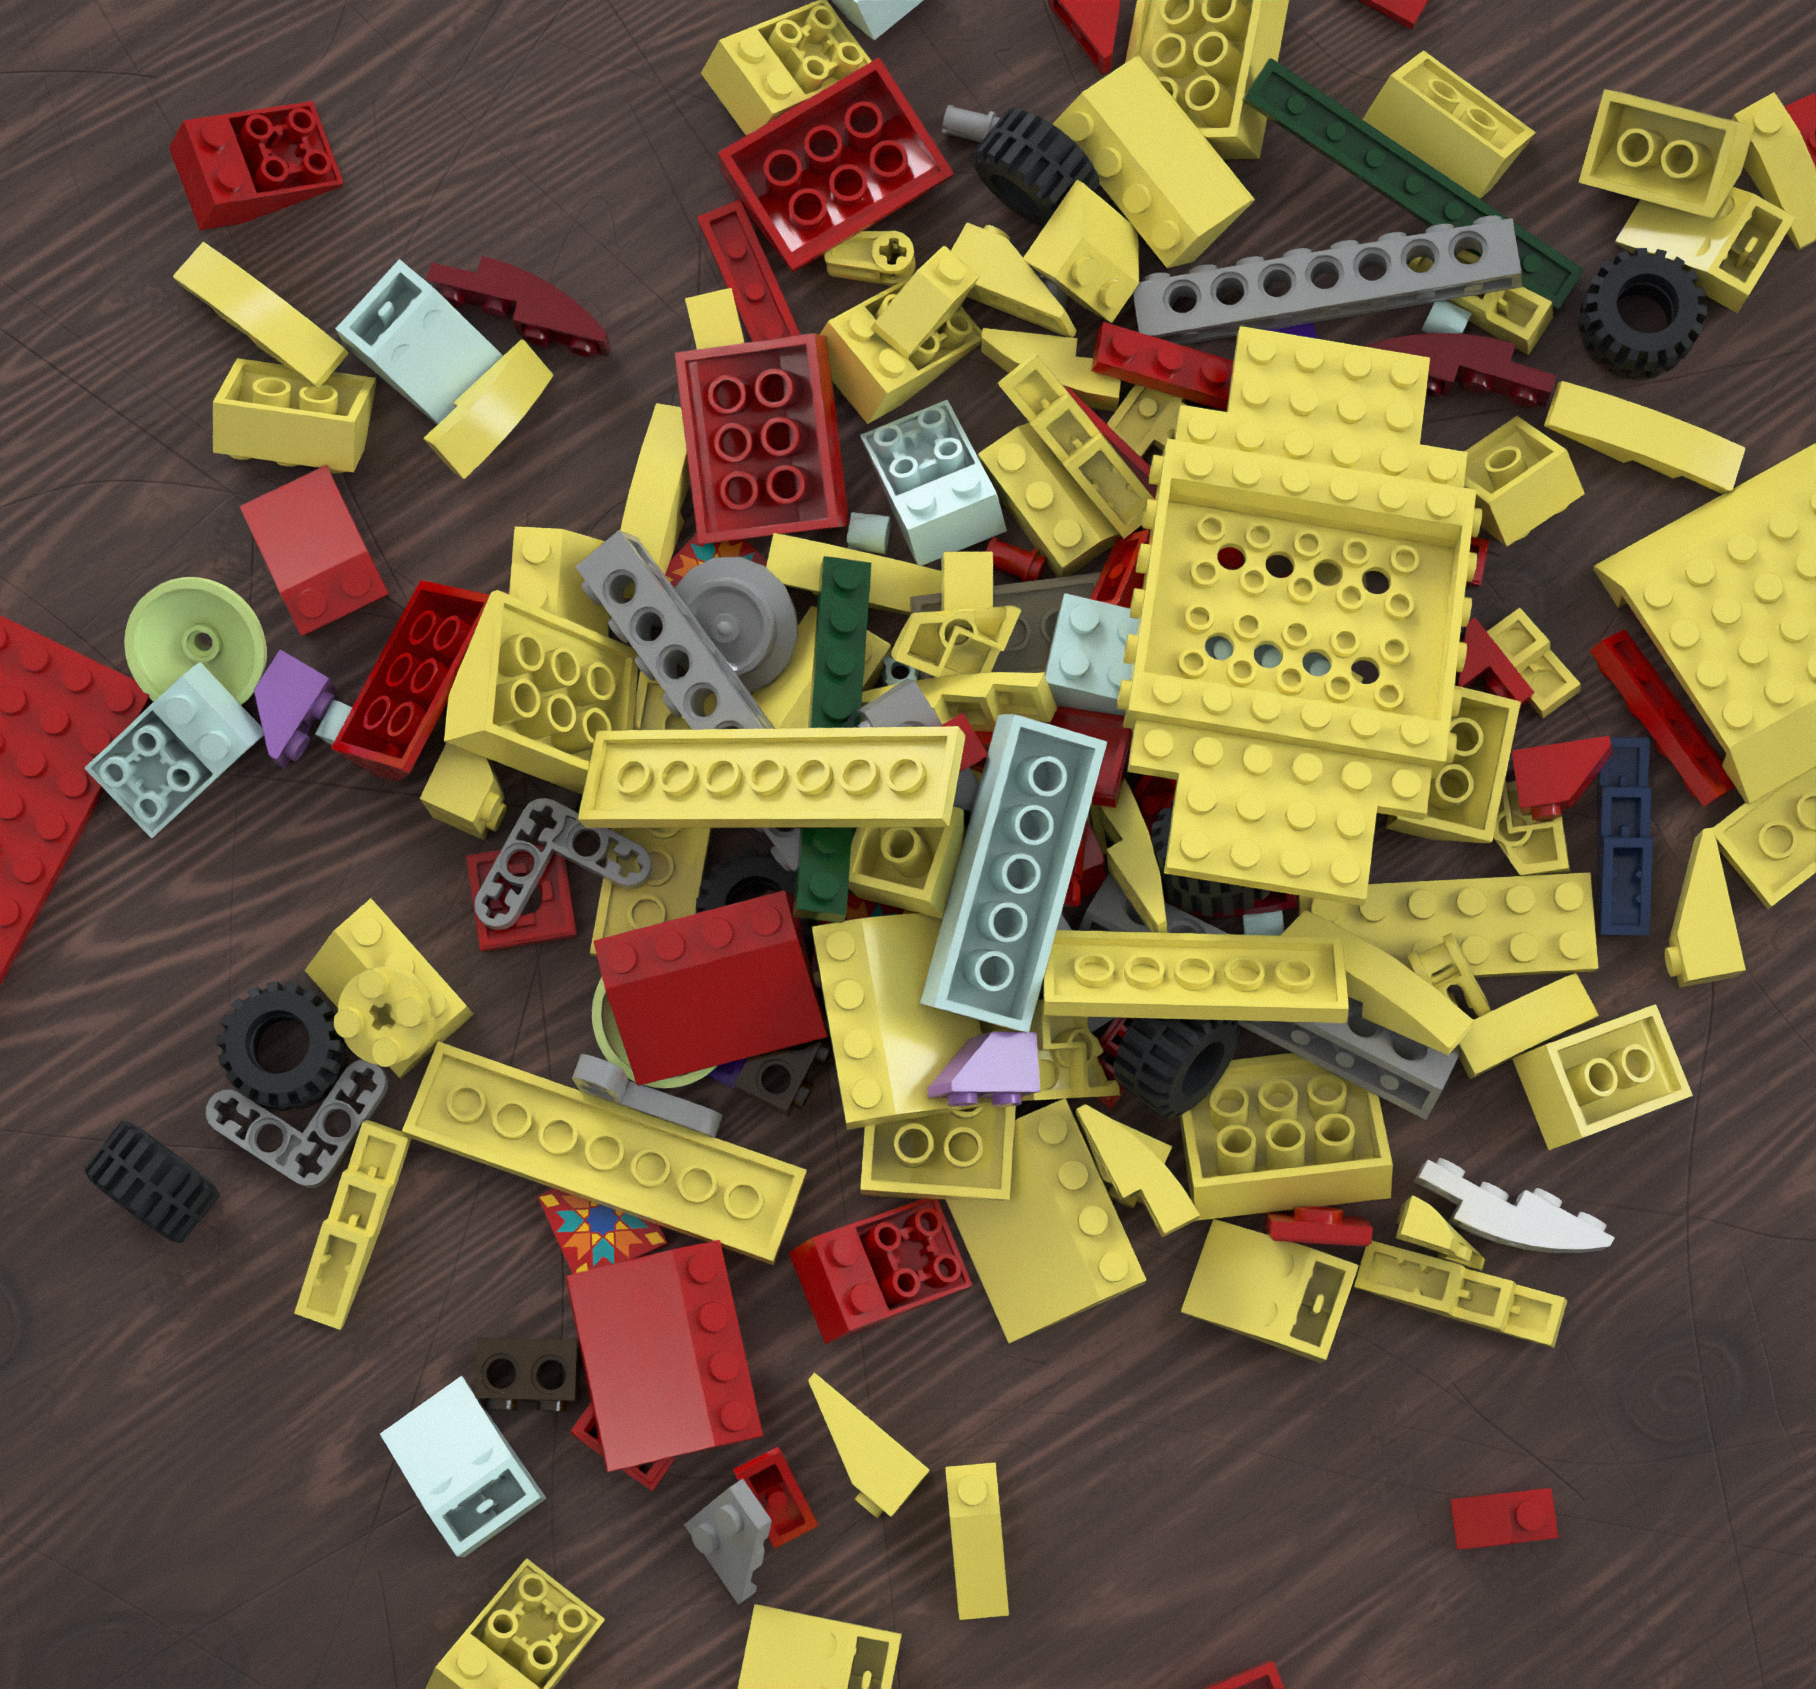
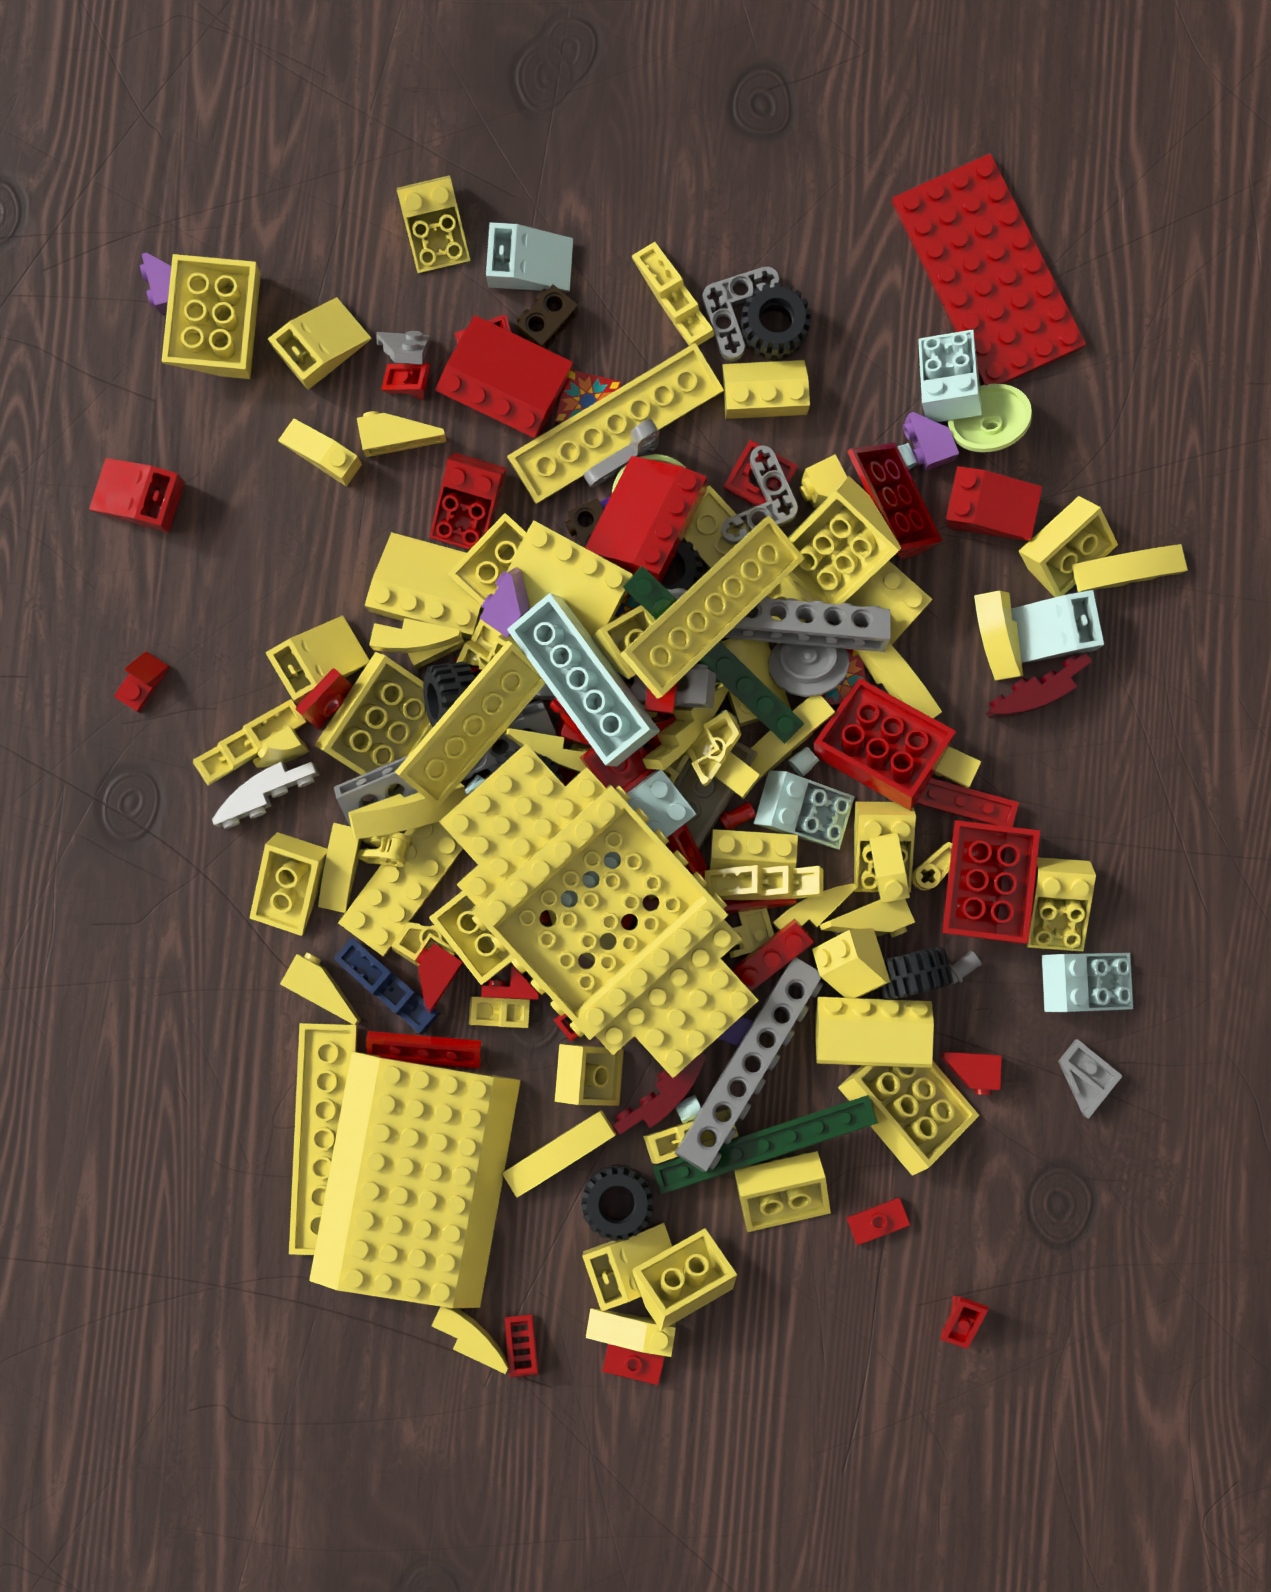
camera: 125 degrees right, 5 degrees up
(151, 1182) = (758, 217): black tyre -> none
(253, 163) = (1208, 622): red slope -> none
(359, 1021) = (750, 357): light yellow plate -> none

